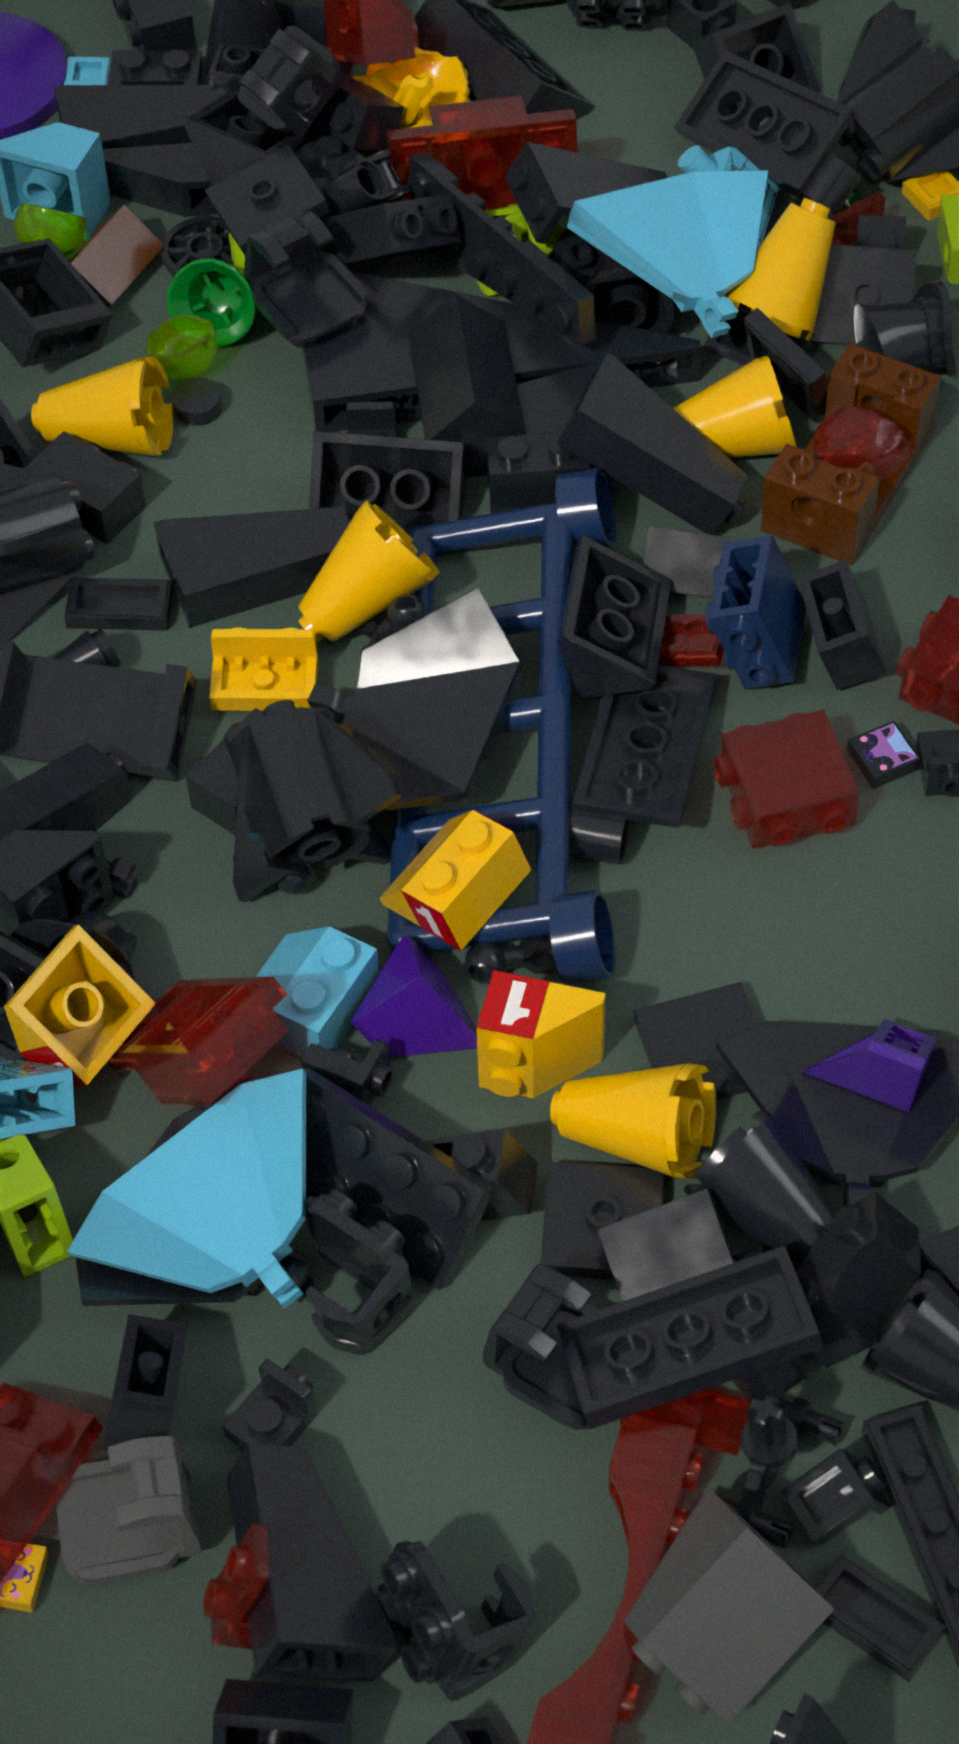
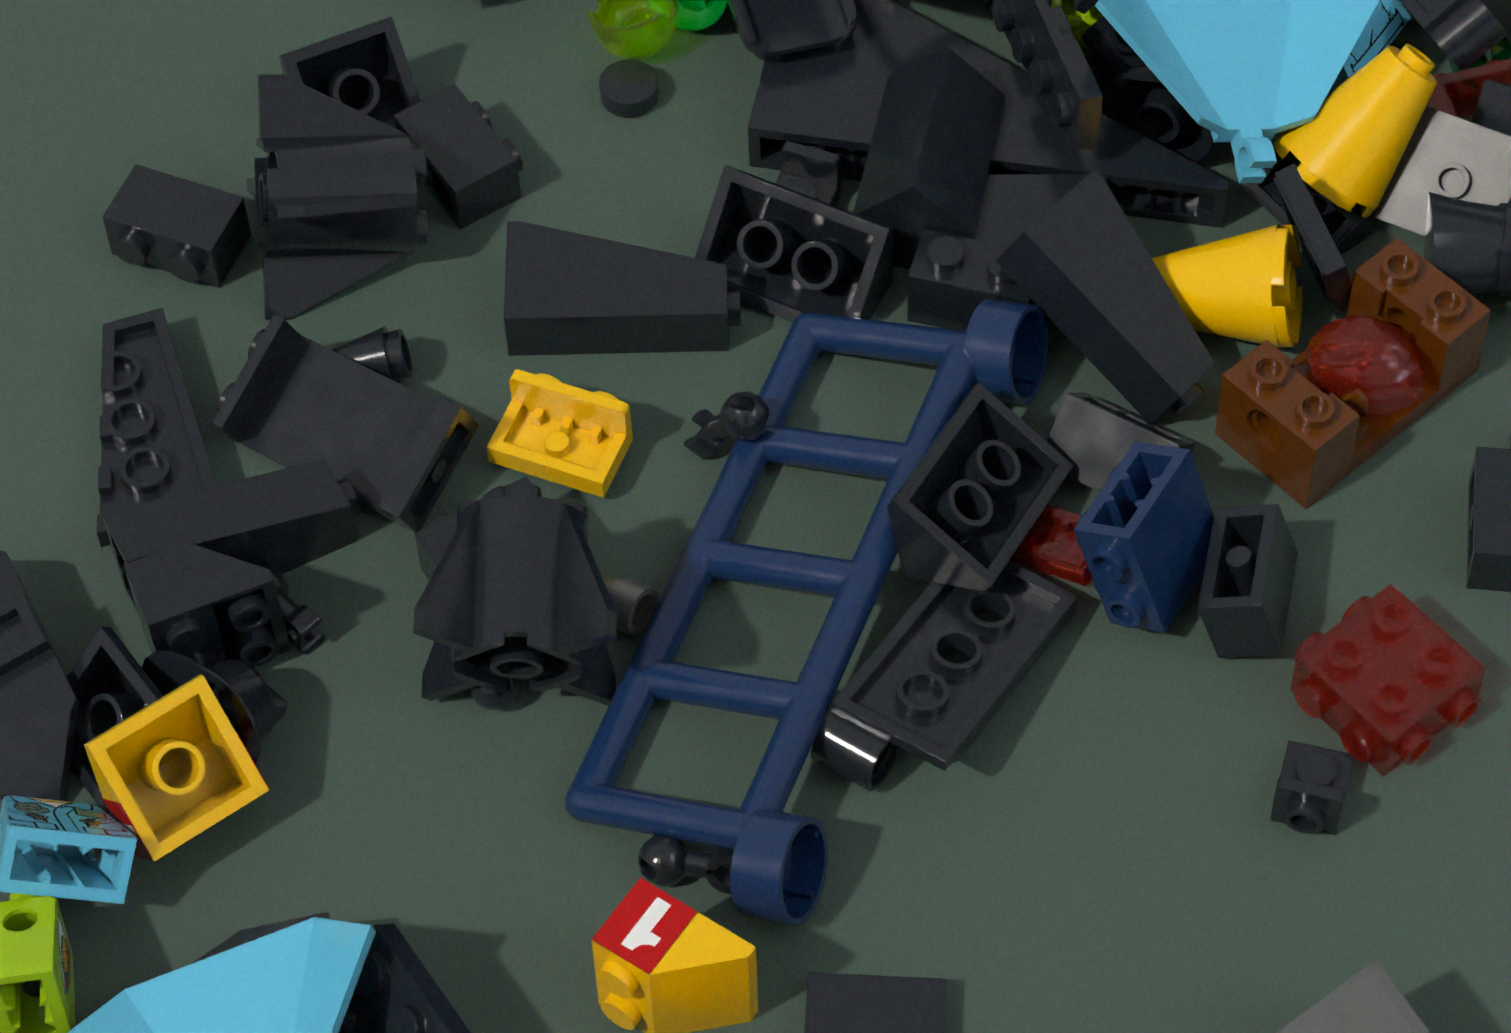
camera: 20 degrees right, 0 degrees up
(111, 409) = (523, 74): yellow cone -> none
(118, 604) = (439, 304): black tile -> none
(203, 1037) = (296, 850): clear red brick -> none
(324, 985) = (452, 833): medium azure slope -> none
(359, 1079) = (447, 947): black bracket -> none
(363, 575) = (715, 350): yellow cone -> none
(414, 1007) = (556, 883): dark purple slope -> none
(431, 700) = (714, 534): black panel -> none
(459, 878) = (662, 755): yellow slope -> none
(787, 779) = (1101, 750): clear red brick -> none
(883, 754) = (1238, 754): black tile -> none

